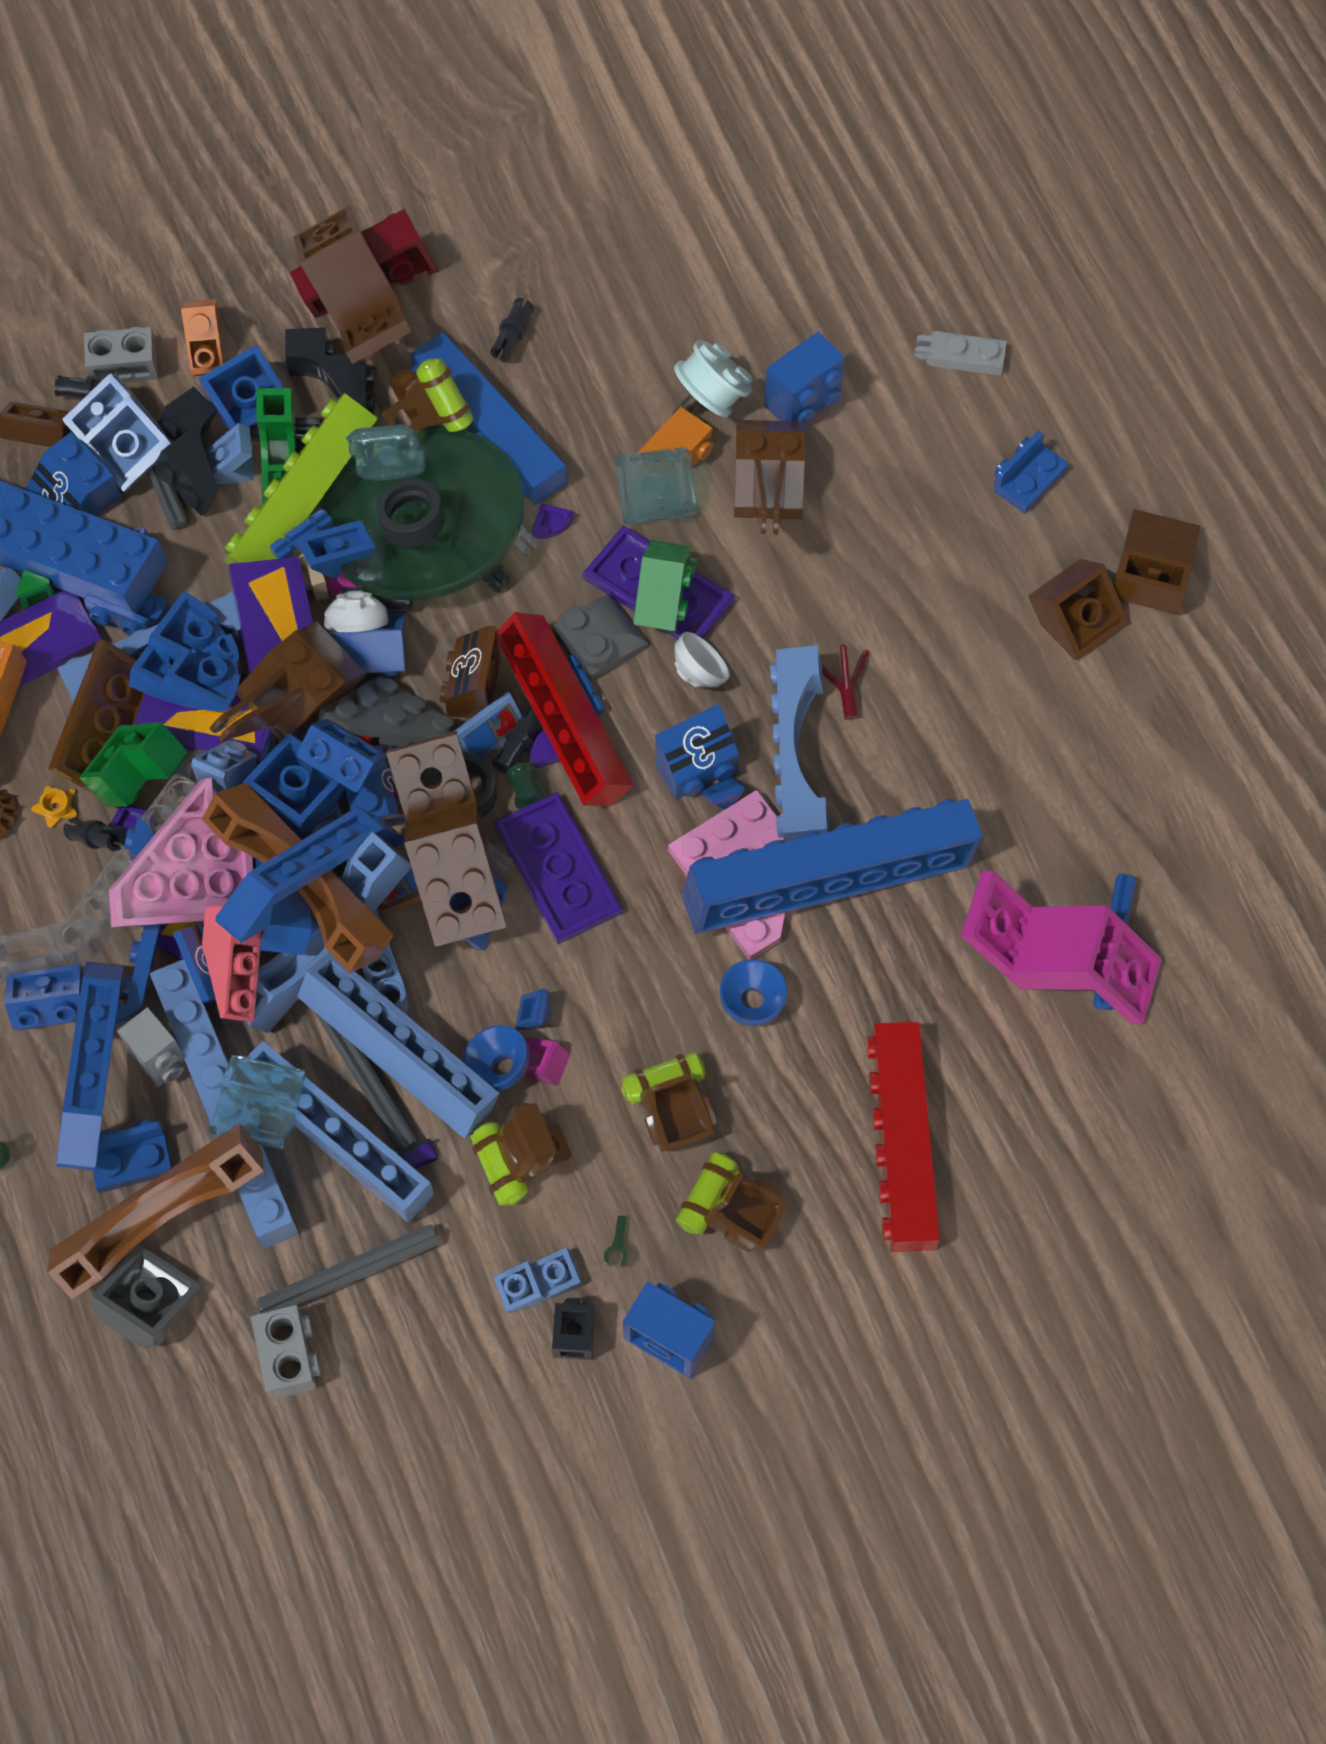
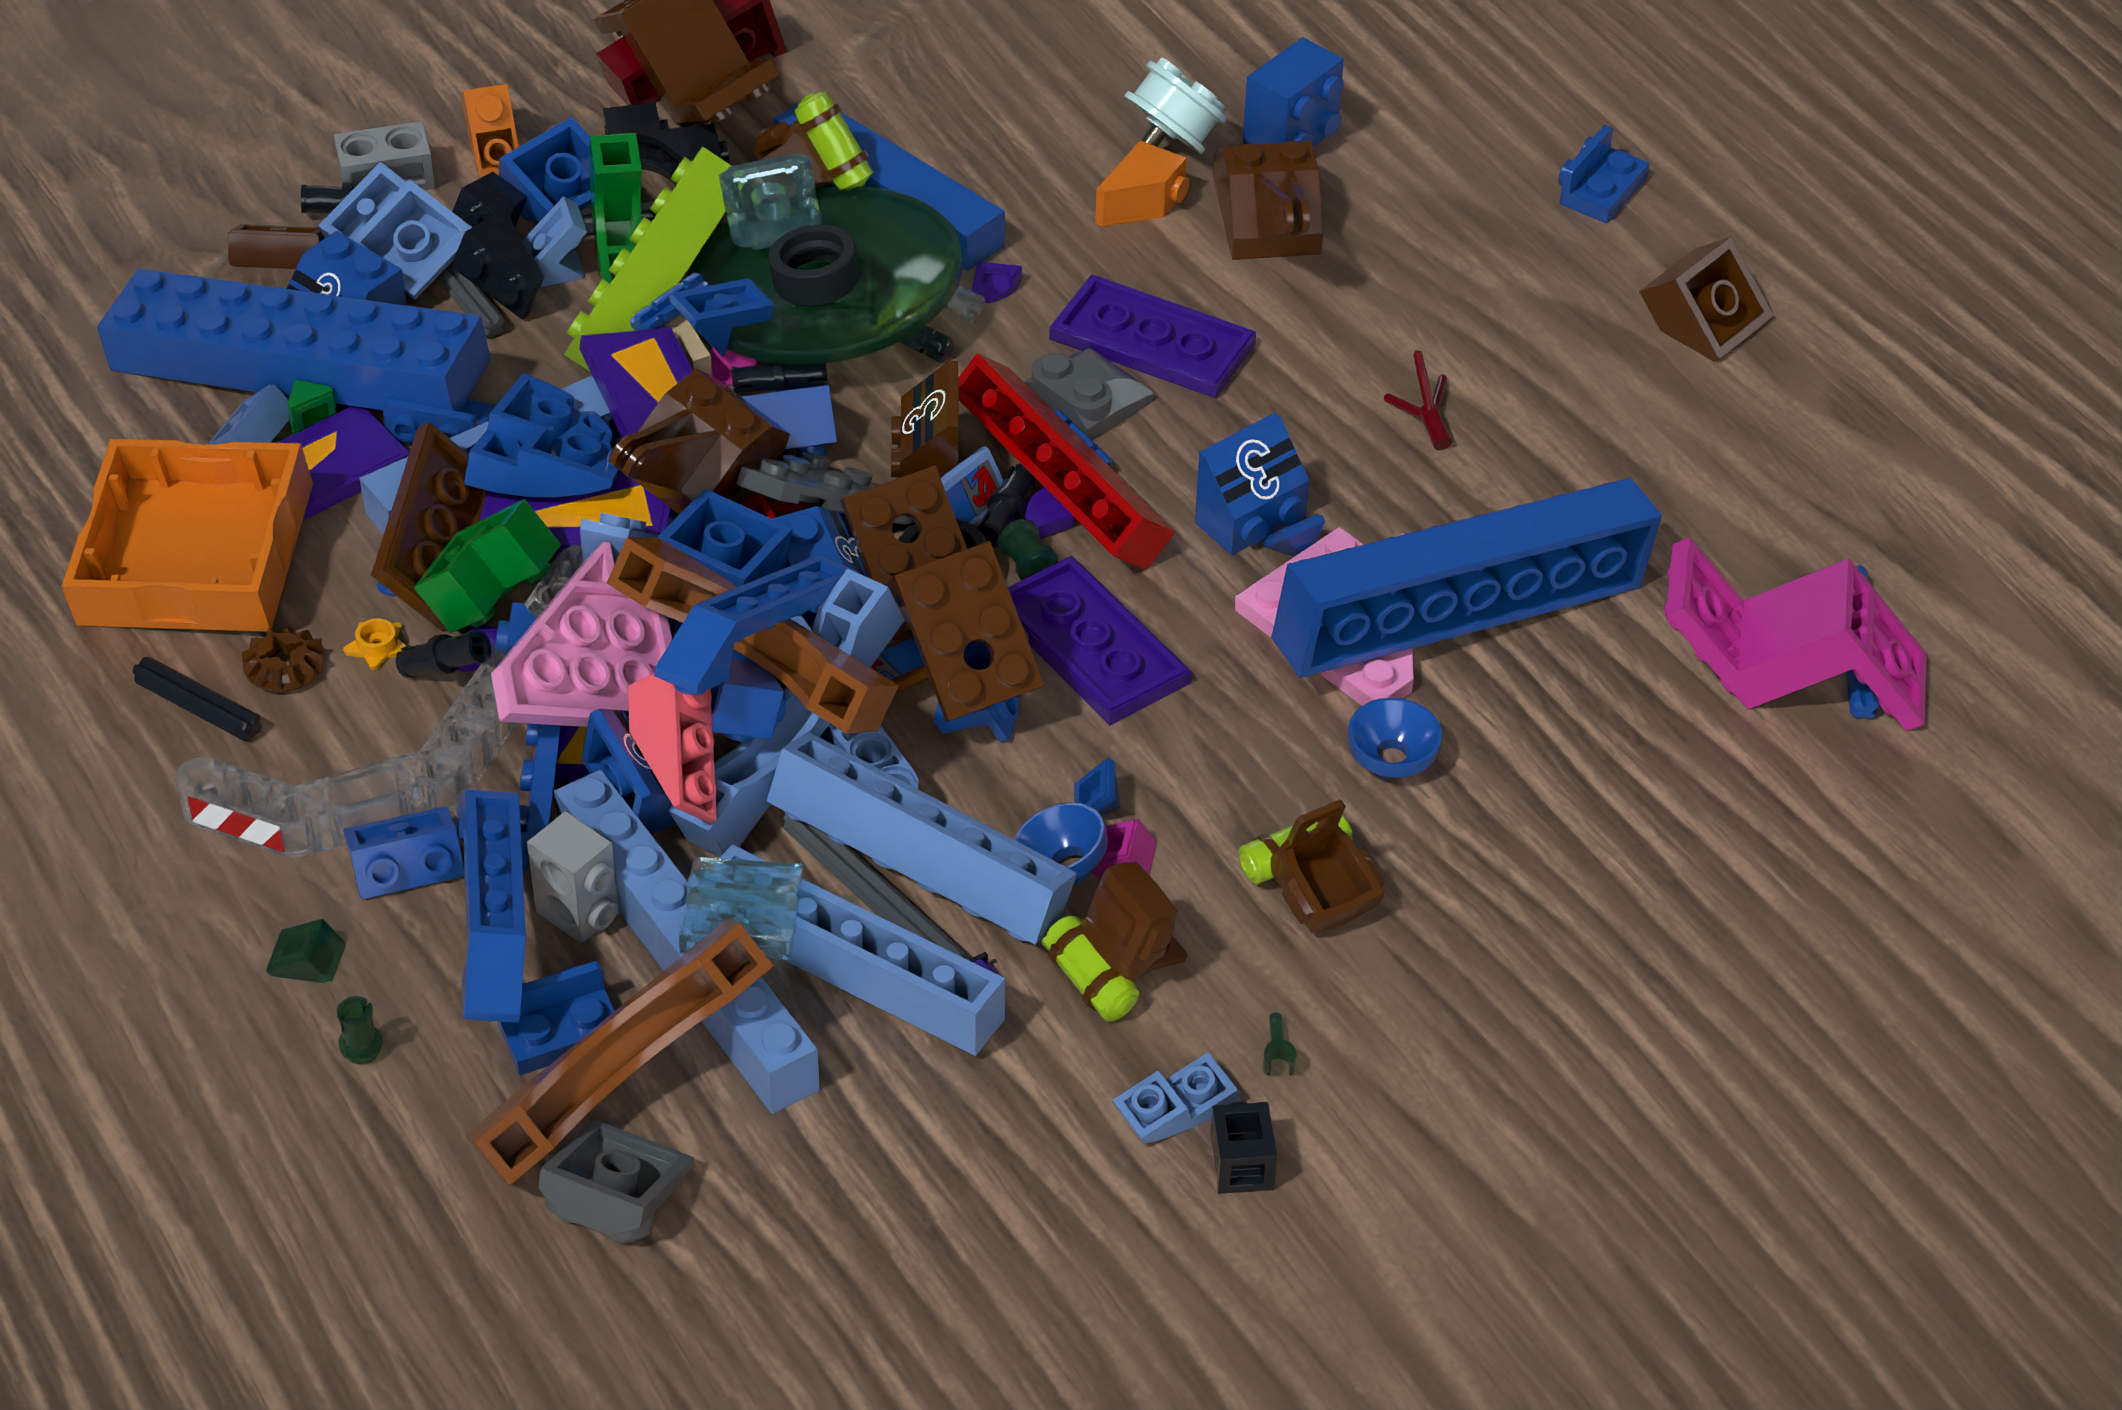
camera: 10 degrees left, 20 degrees down
(277, 1354) = (824, 1222): light grey brick -> none
(340, 754) = (780, 504): blue bracket -> none
(351, 1270) = (901, 1120): dark grey axle -> none
(355, 613) = (761, 375): white piece -> none
(512, 329) = (897, 94): black pin -> none
(656, 485) = (1125, 225): clear light blue slope -> none
(663, 575) = (1166, 313): brick -> none
(669, 1328) = (1381, 1118): blue brick -> none
(699, 662) = (1226, 400): white piece -> none
(732, 1204) = (1429, 971): reddish brown piece -> none
(797, 681) = (1365, 407): medium blue arch -> none
(904, 1137) = (1643, 878): red brick -> none
(962, 352) = (1481, 71): light grey hinge -> none
(1156, 561) = (1793, 249): reddish brown slope -> none

